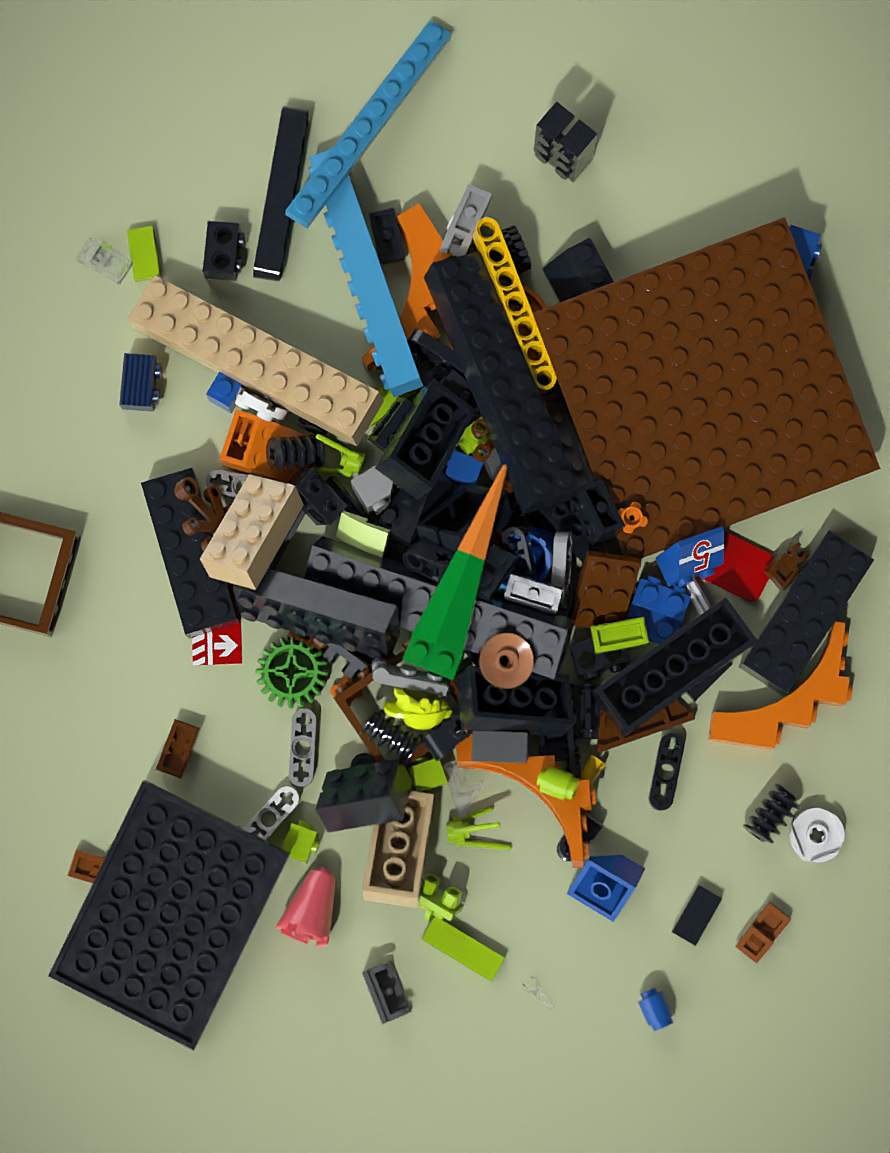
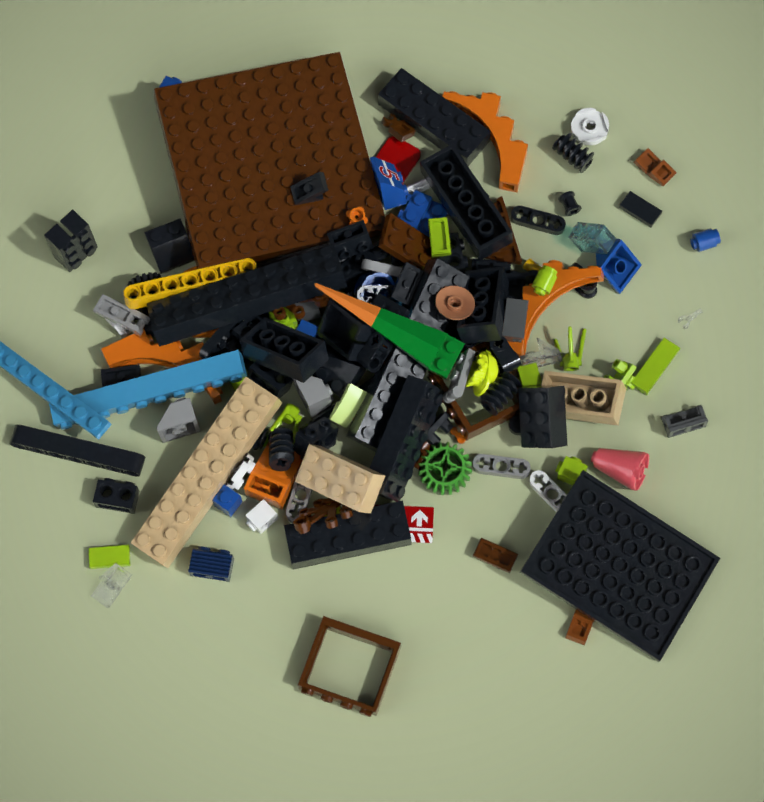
camera: 80 degrees left, 10 degrees down
(206, 438) = (261, 517): none -> white brick
(328, 316) = (178, 421): none -> light grey slope
(638, 848) = (592, 238): none -> clear light blue brick
(660, 446) = (309, 189): none -> black slope
(693, 814) = (569, 203): none -> black bush

